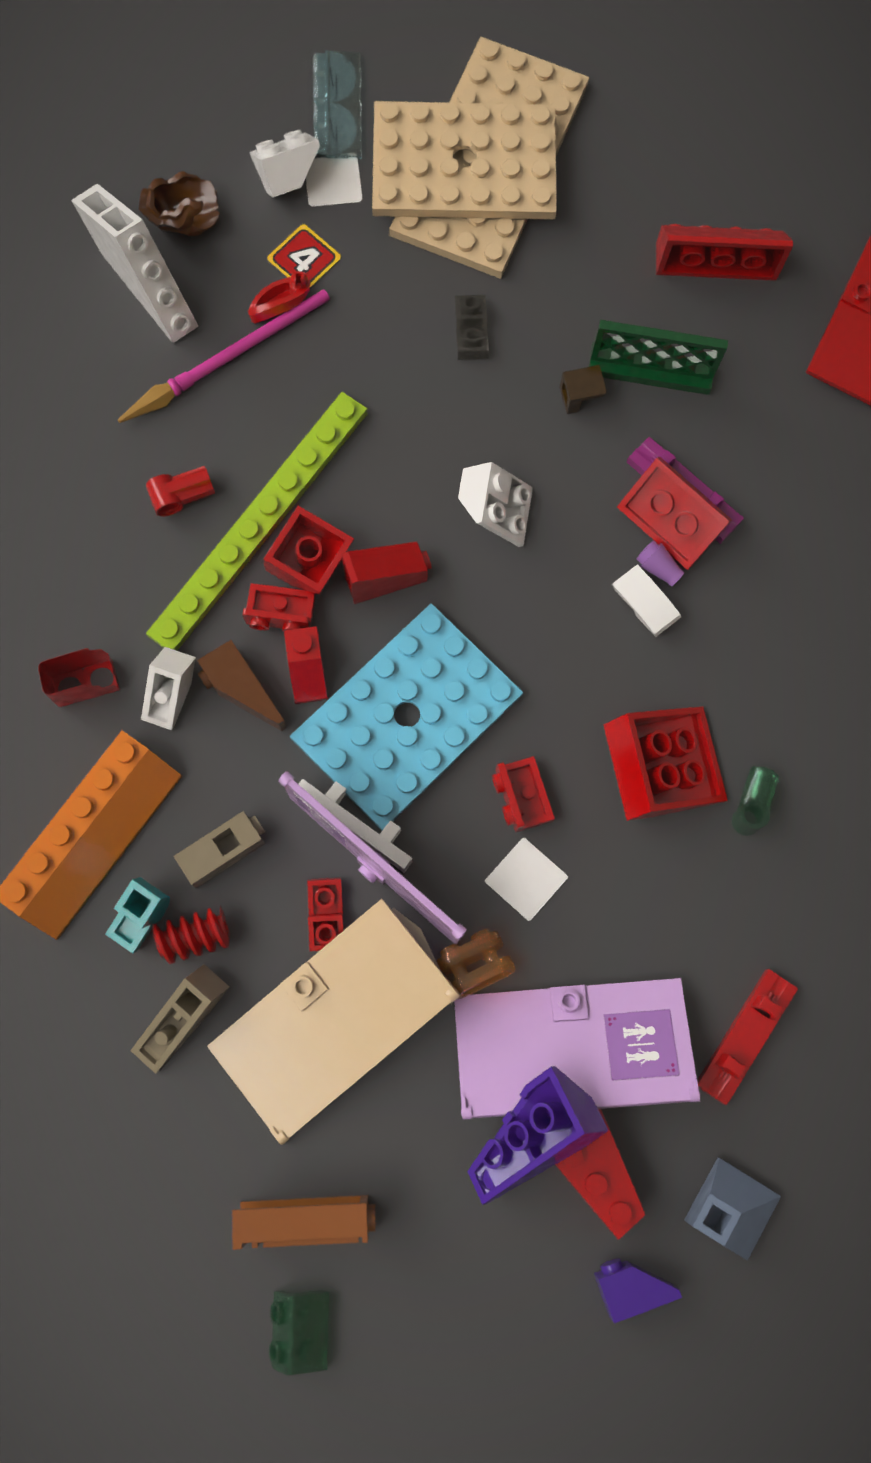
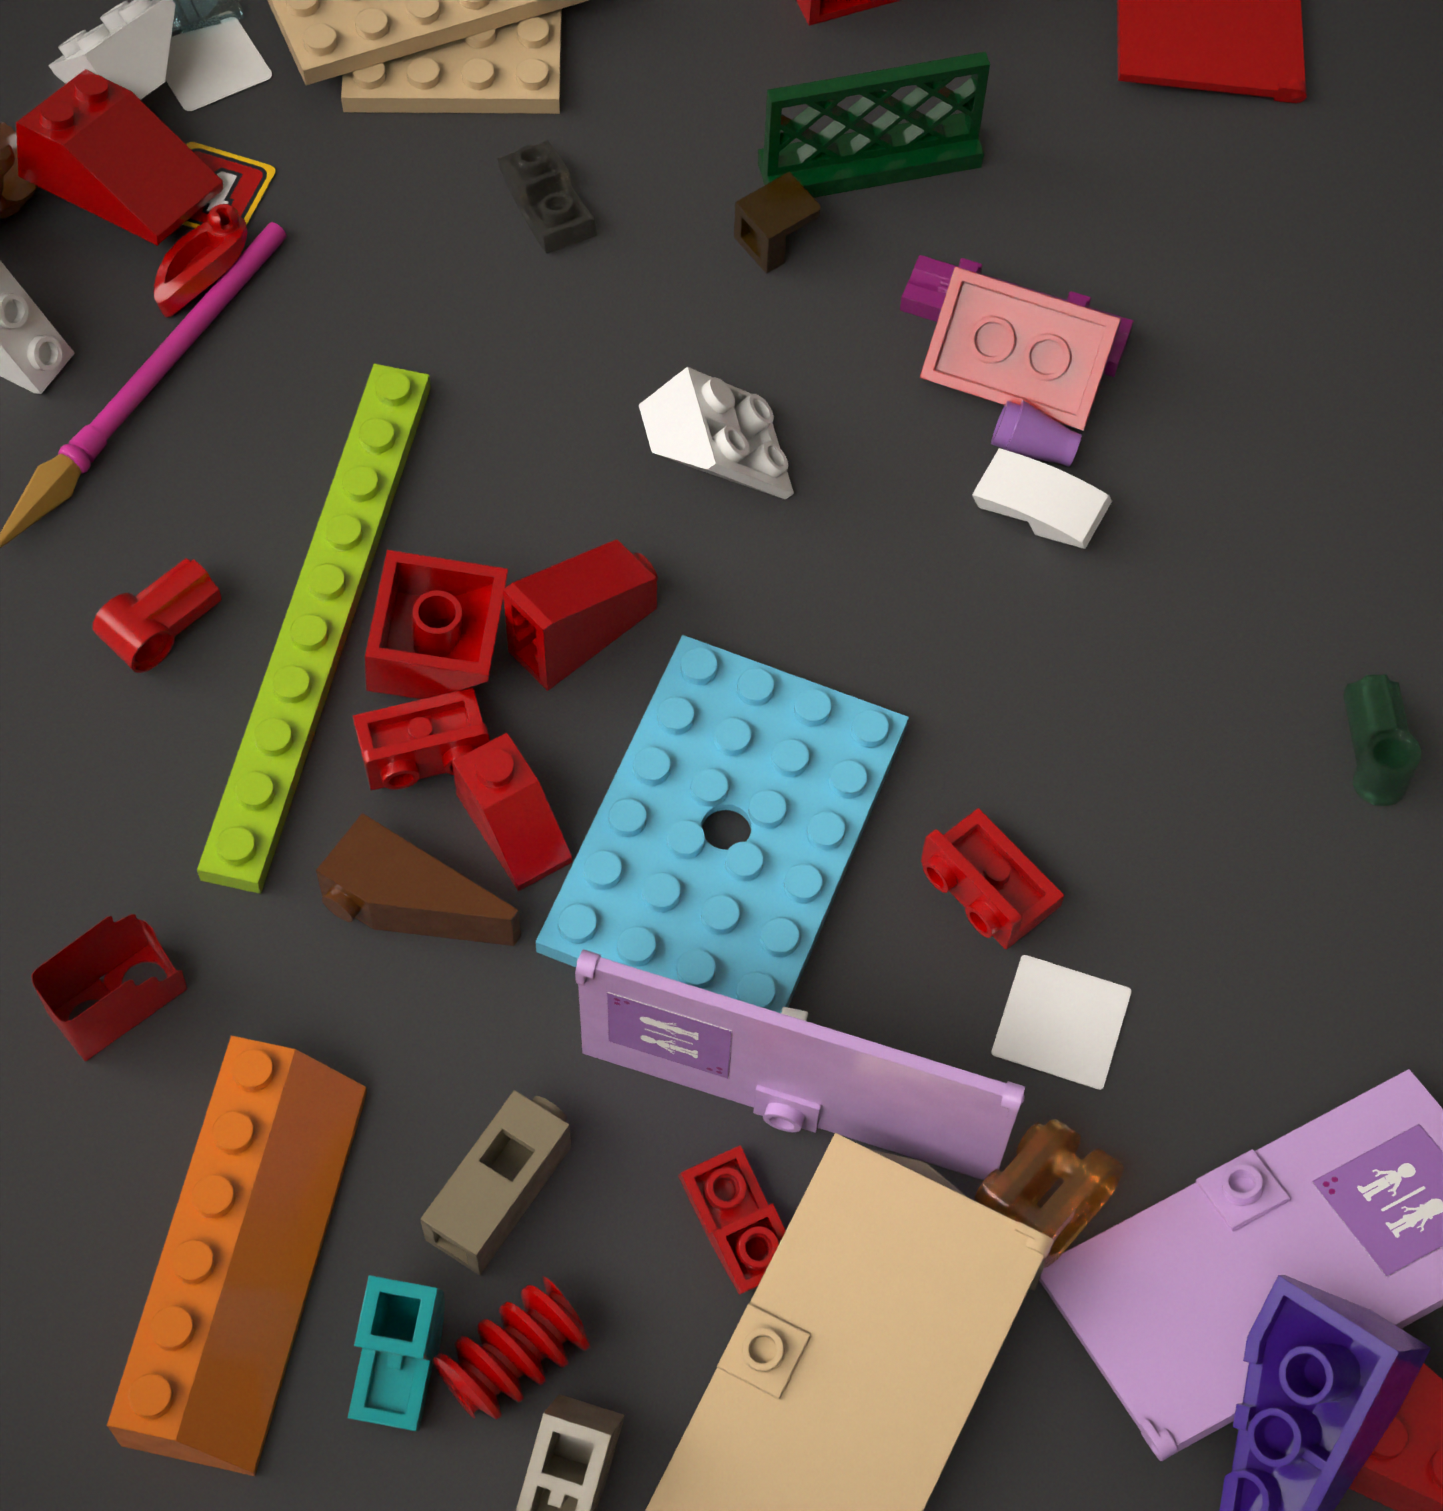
camera: 20 degrees left, 15 degrees down
(167, 687) = (278, 945): white slope -> none
(256, 224) = (113, 158): none -> red slope
(664, 762) = (1198, 736): red slope -> none

